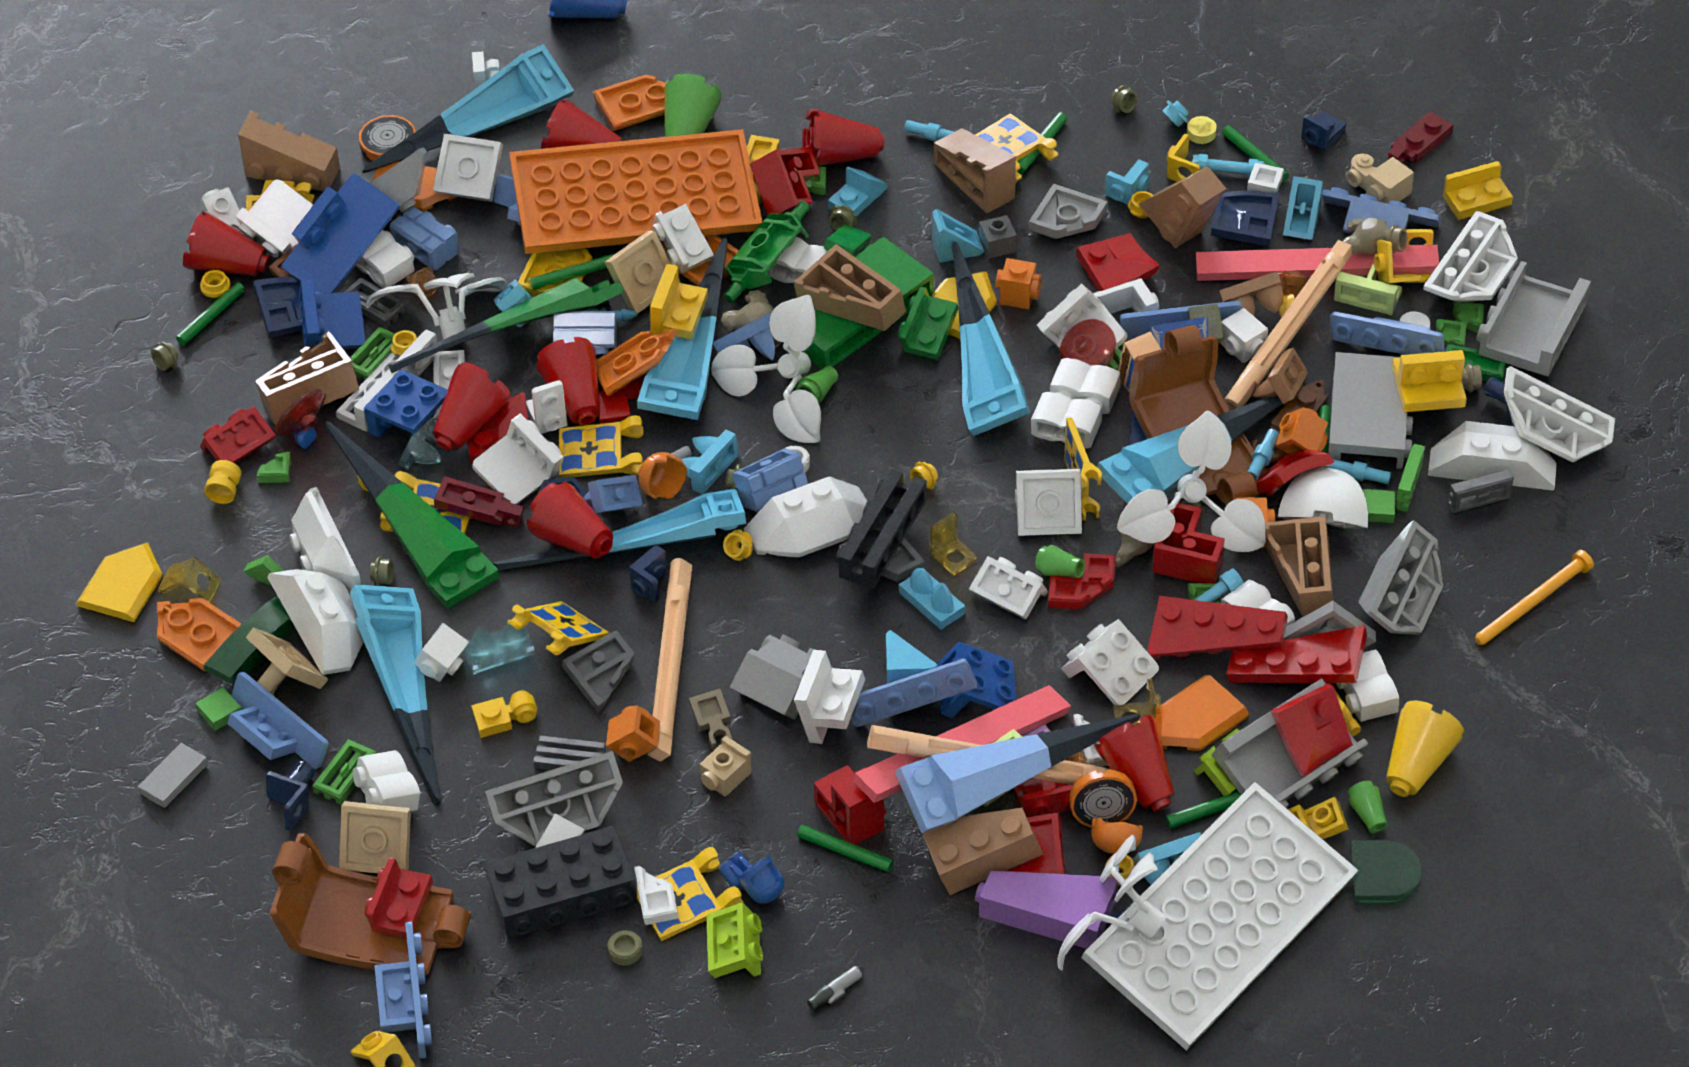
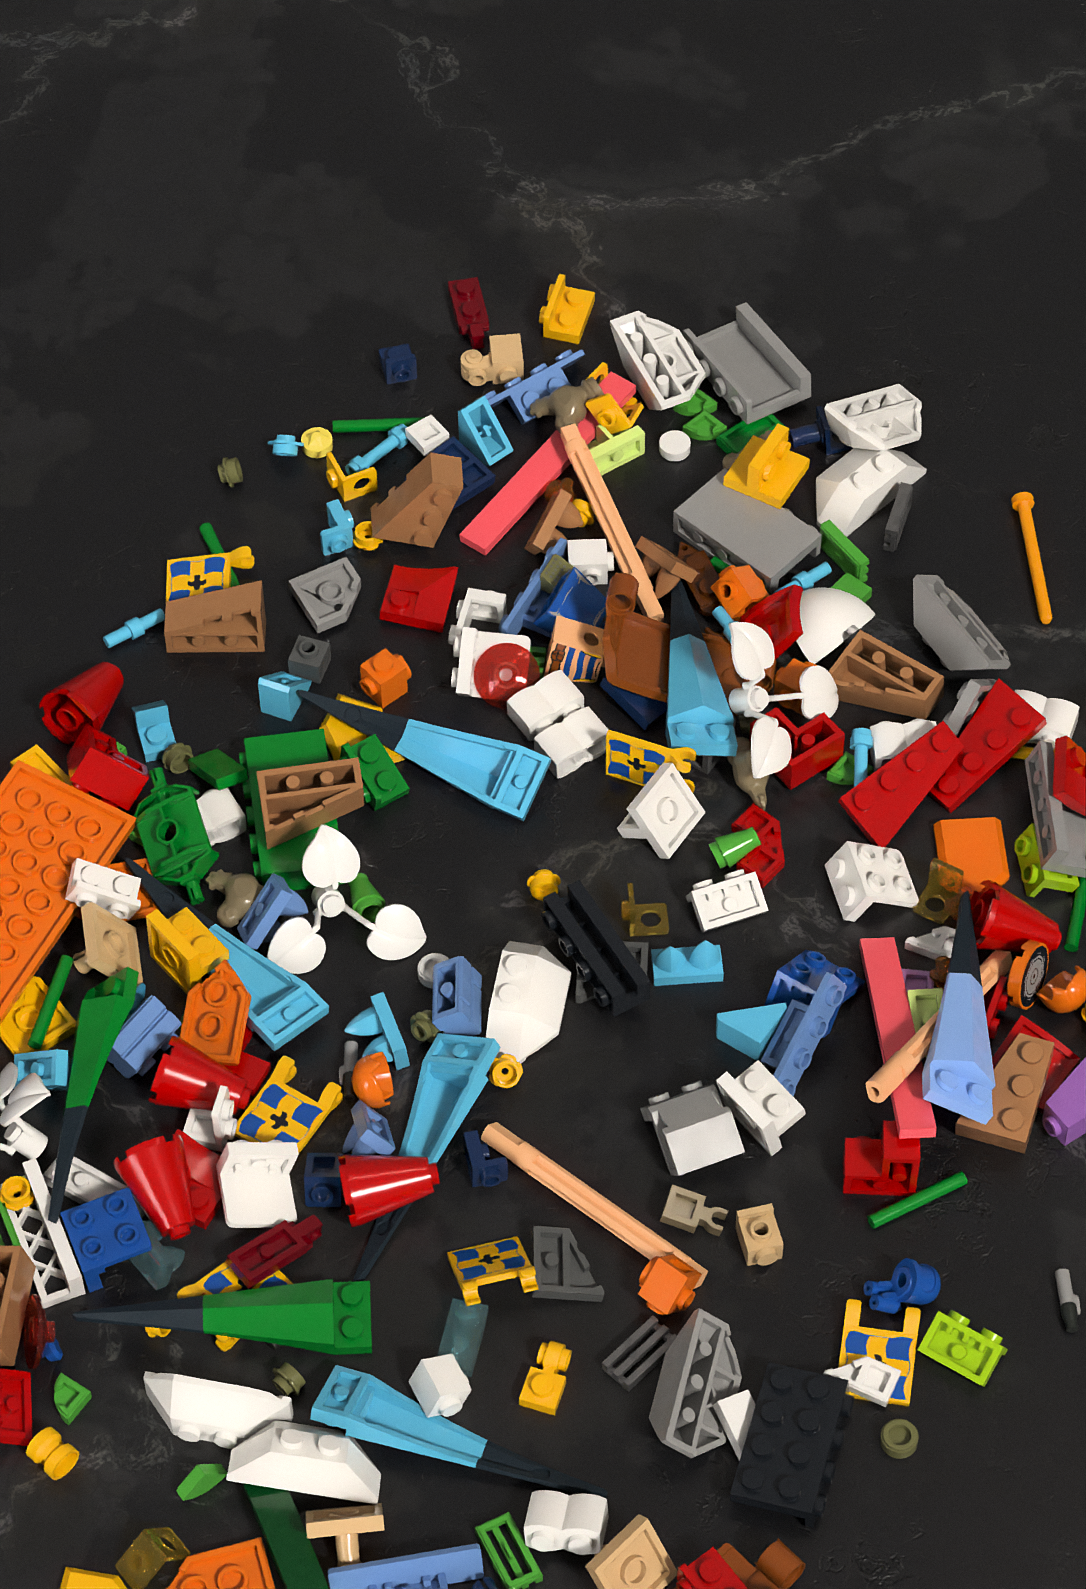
camera: 55 degrees left, 5 degrees up
(1385, 334) = (684, 464): medium blue bracket -> none

